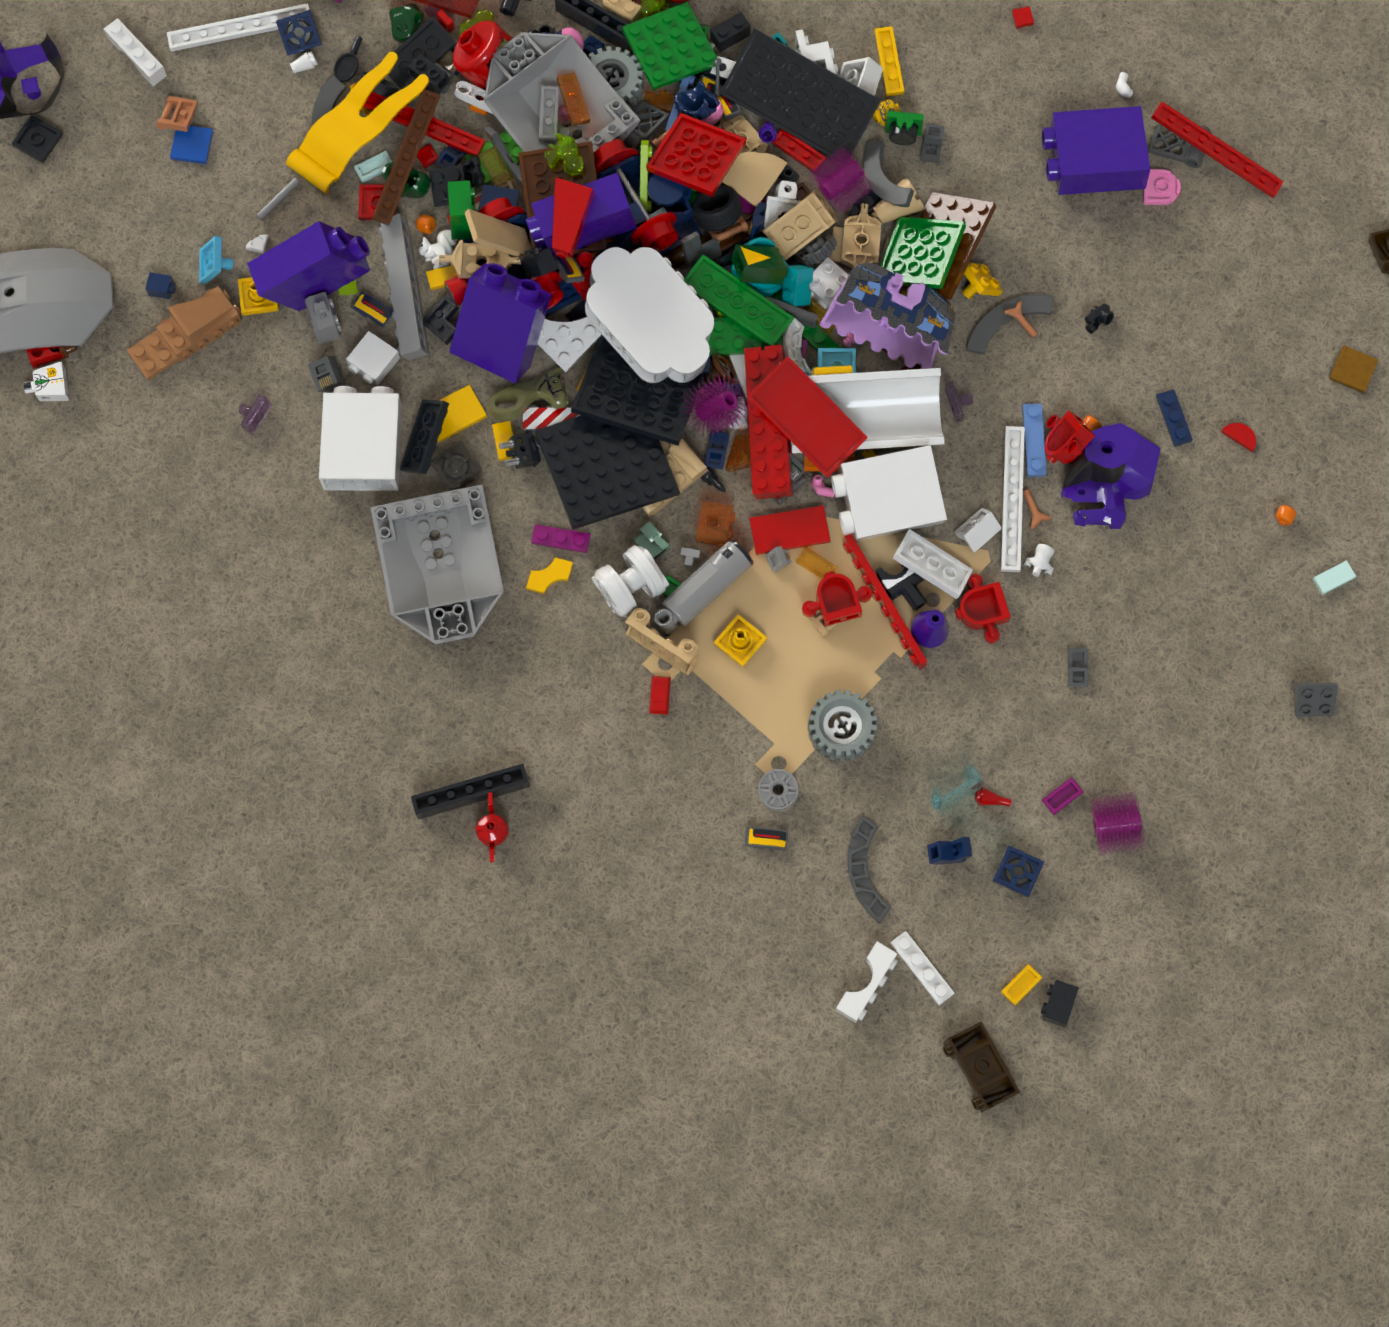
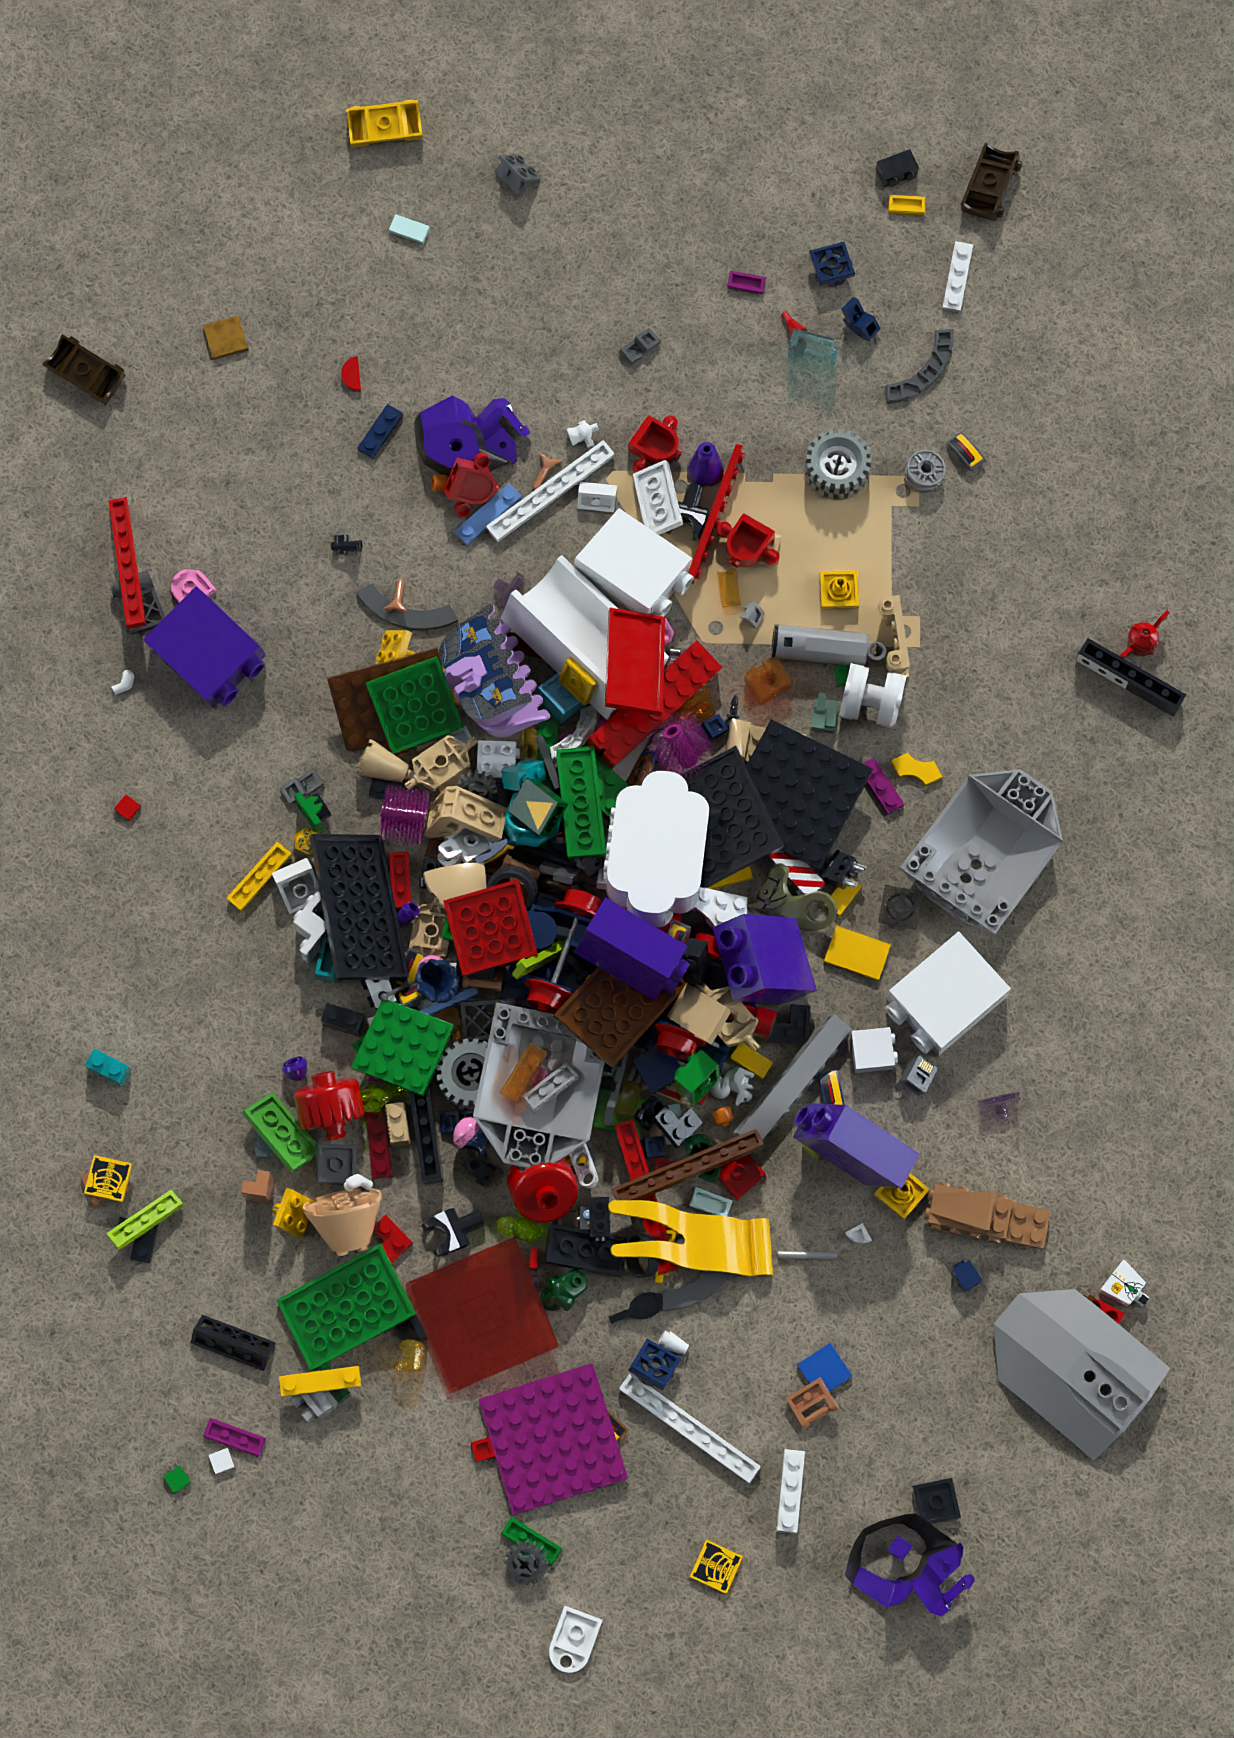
camera: 135 degrees left, 0 degrees up
(211, 261) = (910, 1250): medium azure tile -> none
(323, 317) = (880, 1109): light grey hinge -> none
(424, 436) = (900, 949): black plate -> none
(566, 150) = (581, 1023): clear neon green animal -> none
(570, 212) = (651, 935): red slope -> none
(660, 695) = (931, 613): red tile -> none
(690, 555) = (806, 679): light grey tile -> none
(790, 529) = (720, 627): red tile -> none
(854, 1003) = (1026, 297): white arch -> none
(882, 186) = (375, 795): dark grey tile -> none
(1122, 823) = (738, 221): magenta piece -> none
(1285, 515) = (391, 295): orange piece -> none

